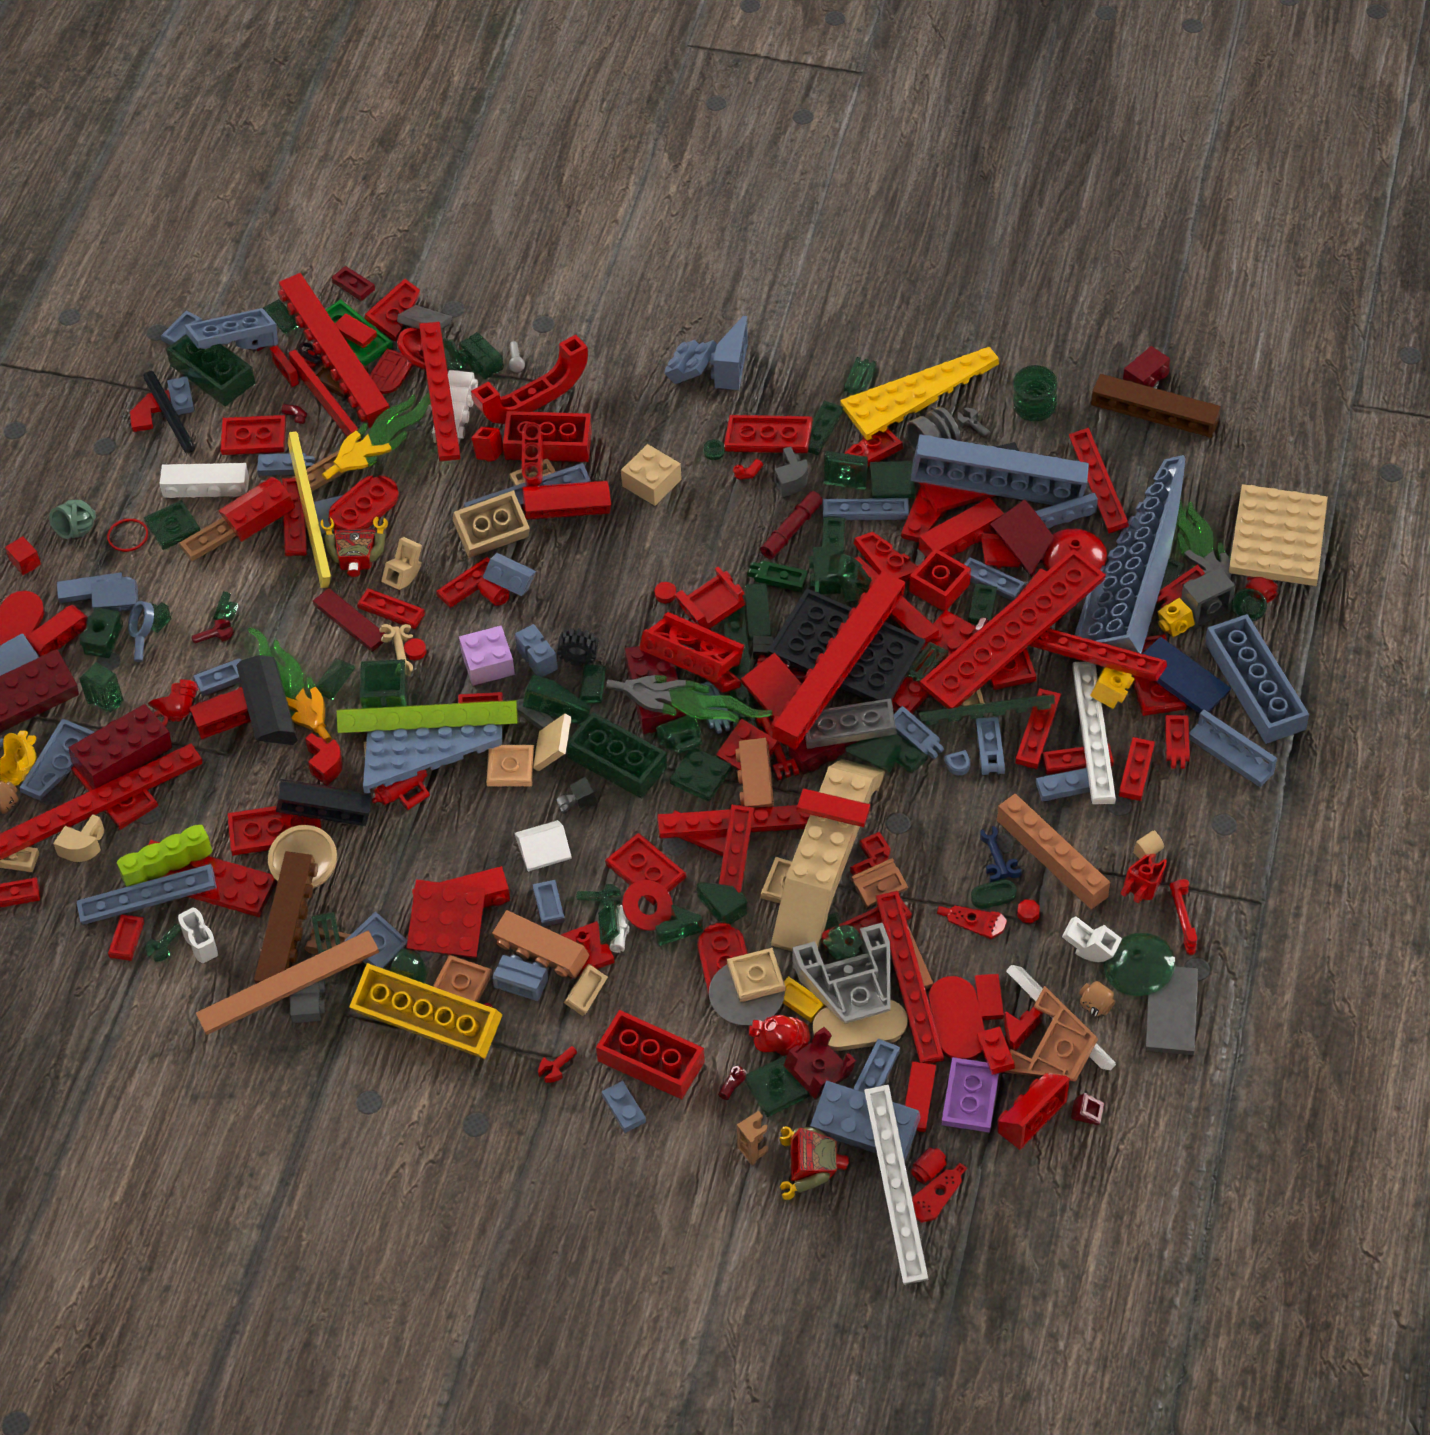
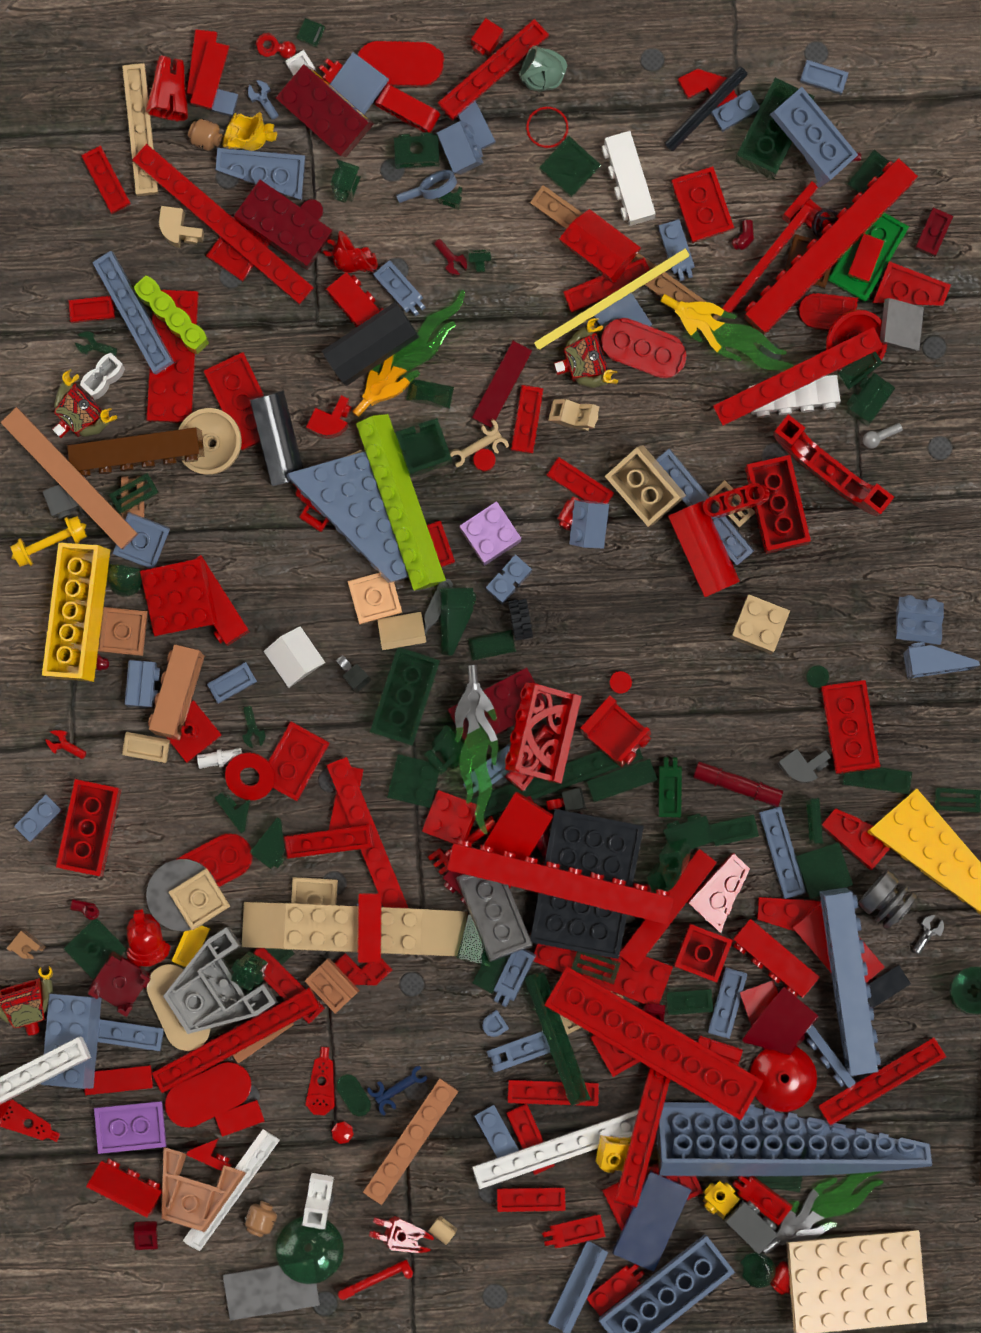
camera: 70 degrees right, 30 degrees up
(55, 559) = (492, 70): none -> red tile
(223, 967) = (78, 410): none -> torso
(345, 1049) = (22, 553): none -> yellow piece
(487, 443) = (751, 447): red brick -> none
(608, 923) = (218, 747): clear green tile -> none
(747, 473) = (795, 720): red arm -> none
(755, 773) = (415, 837): nougat brick -> none
(928, 1165) = (48, 1107): red brick -> none
(995, 1050) = (176, 1140): red plate -> none
(1239, 720) = (614, 1289): none -> red hinge

